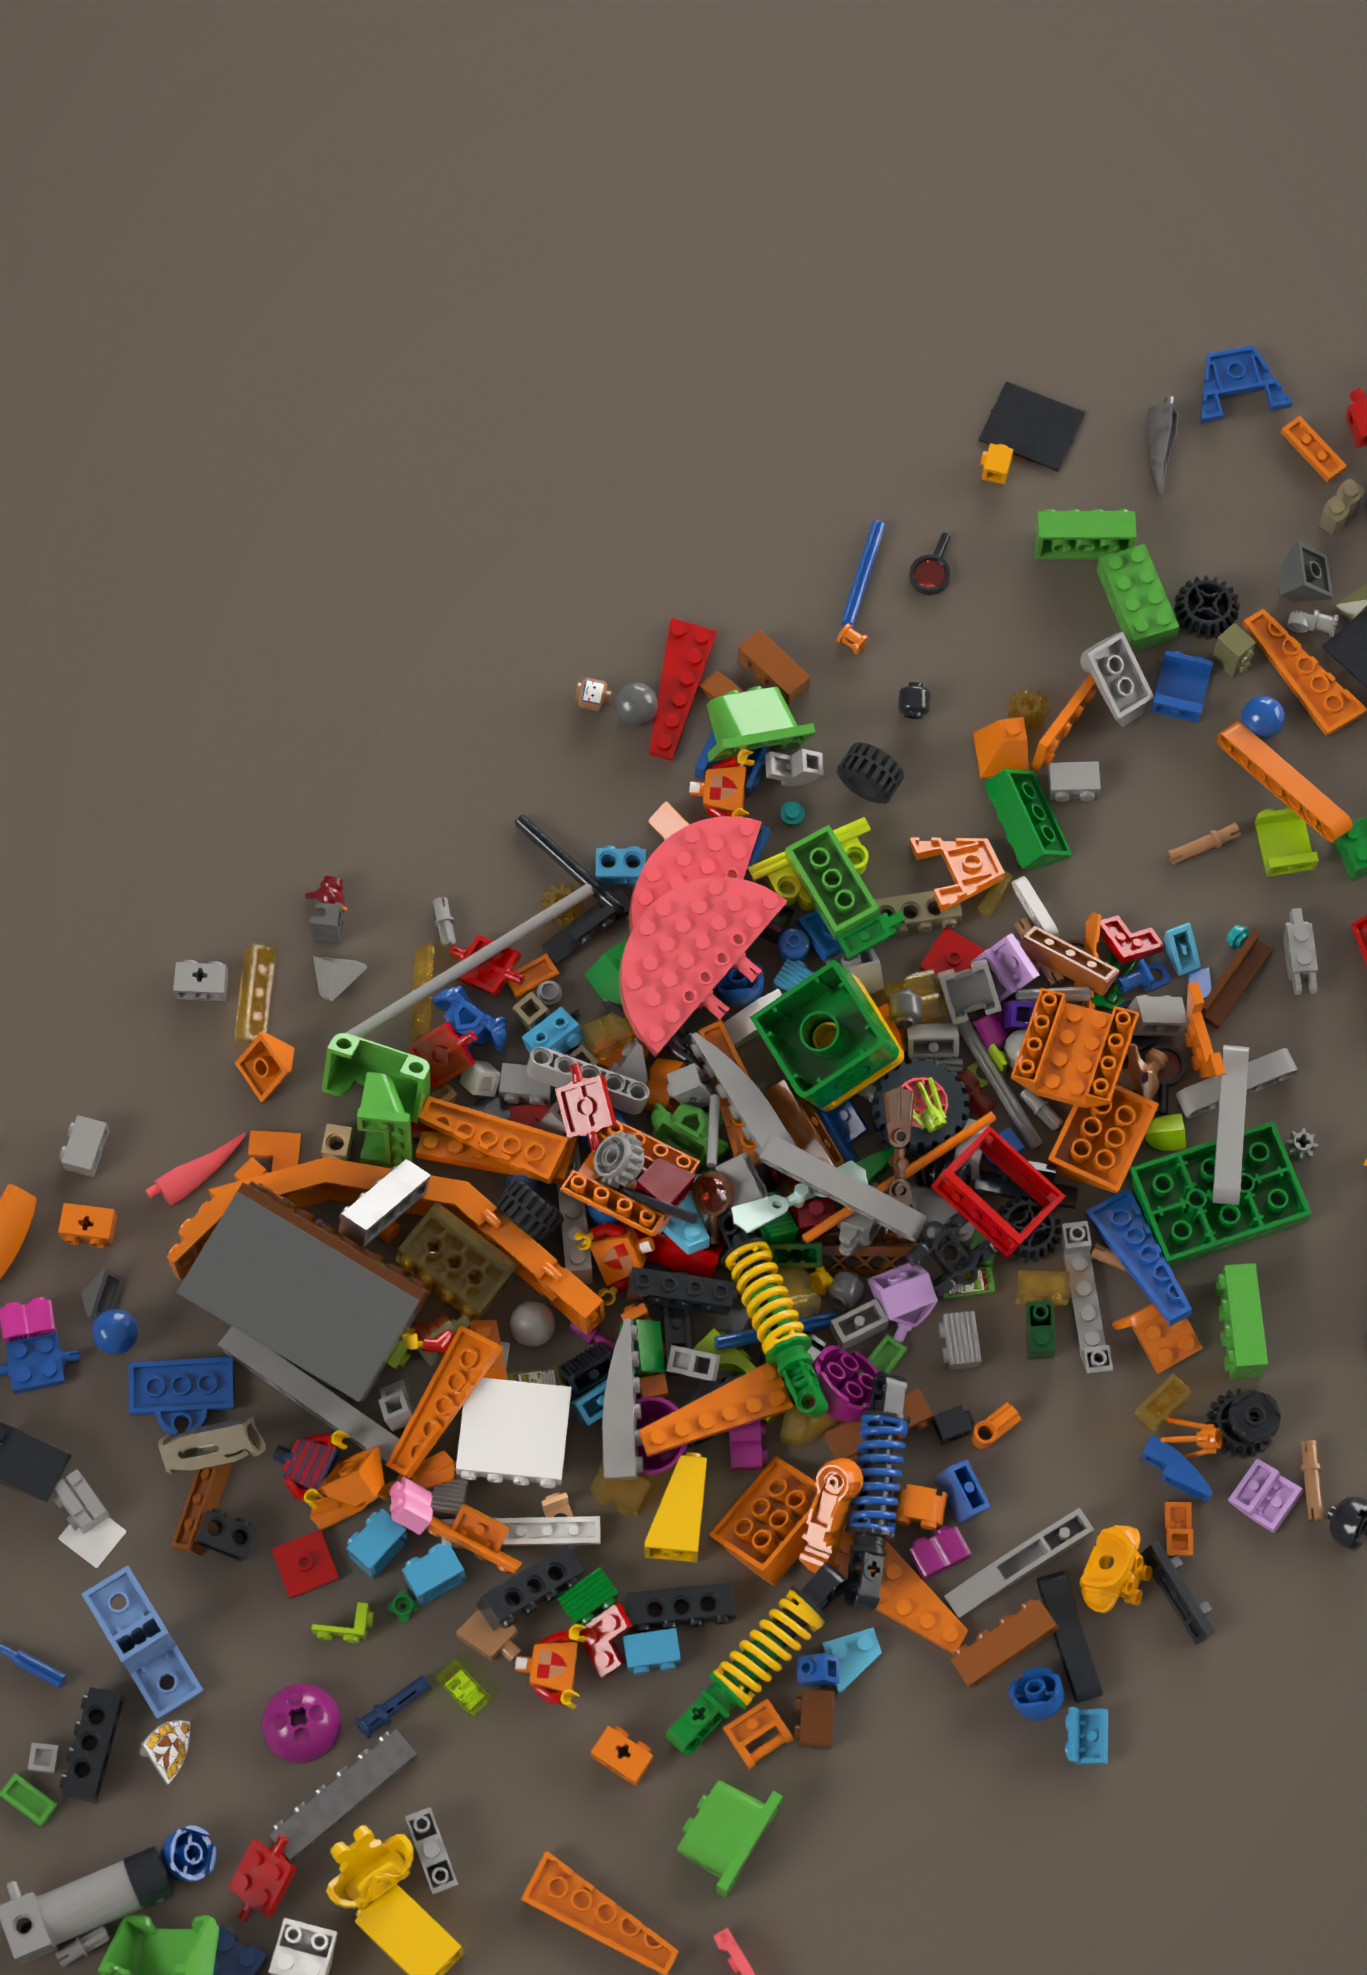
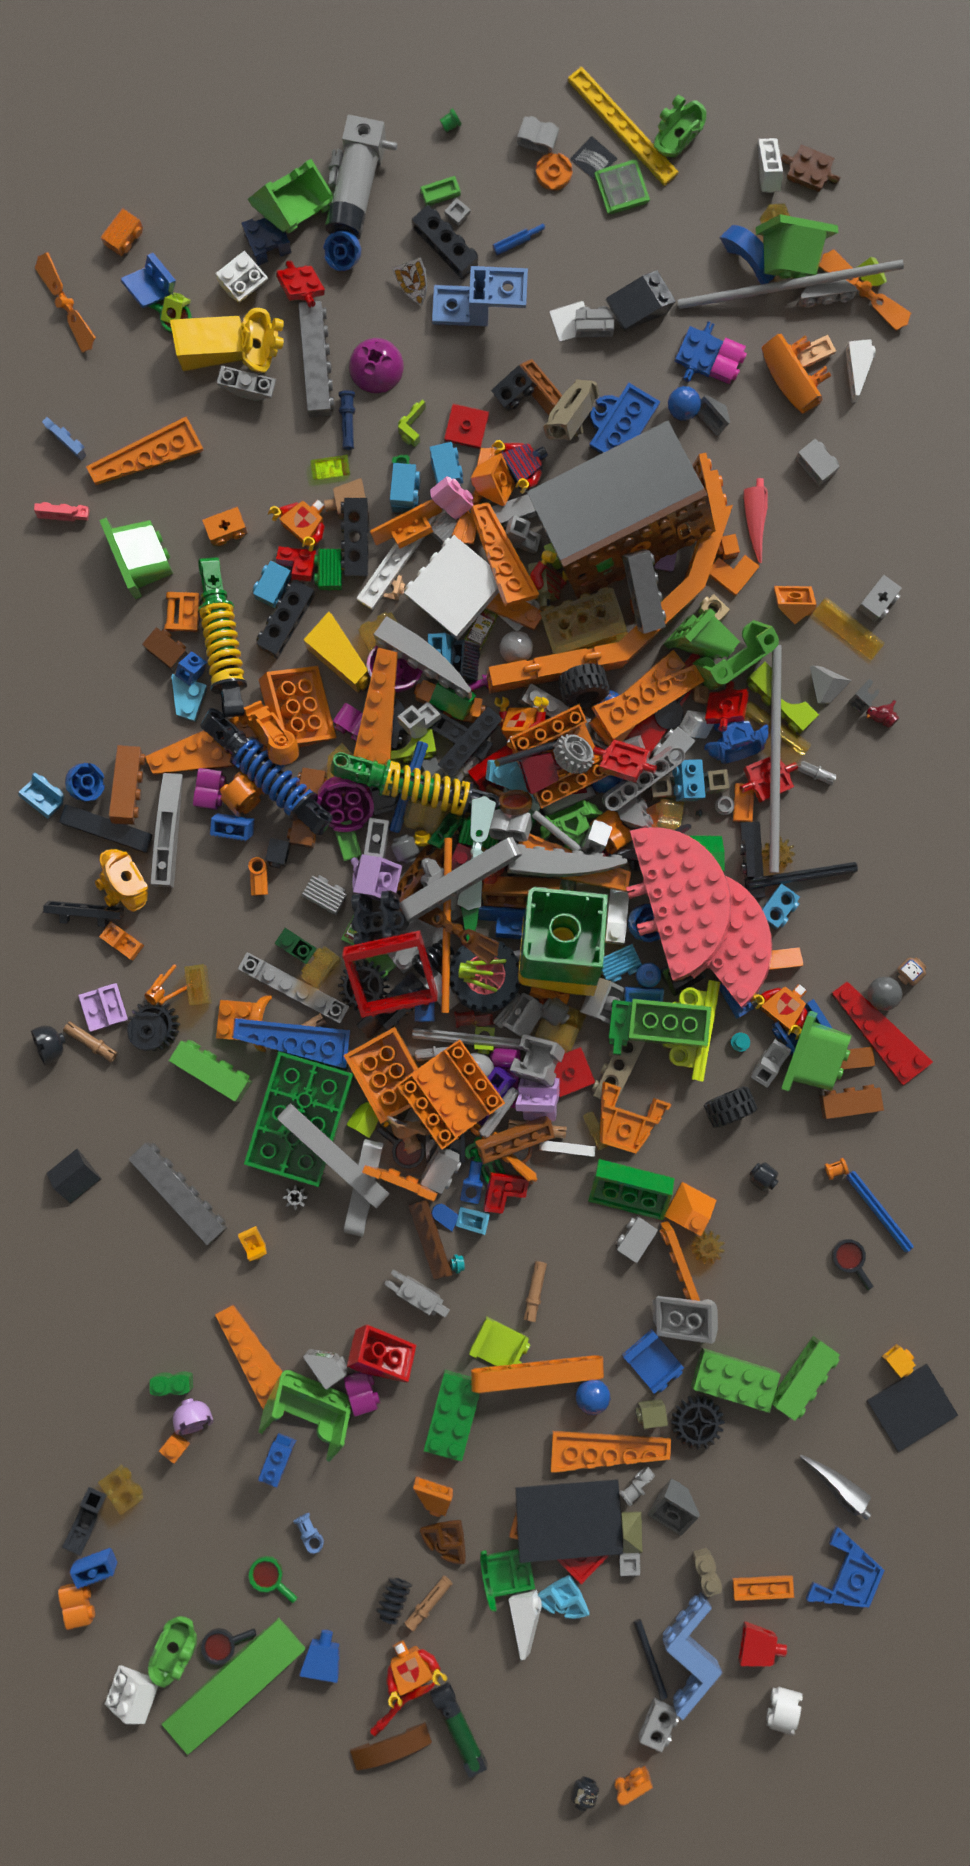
camera: 125 degrees right, 15 degrees up
(76, 1217) = (759, 441): orange brick -> none
(393, 979) = (797, 715): none -> lime arch
(1177, 1469) = (155, 964): blue slope -> none

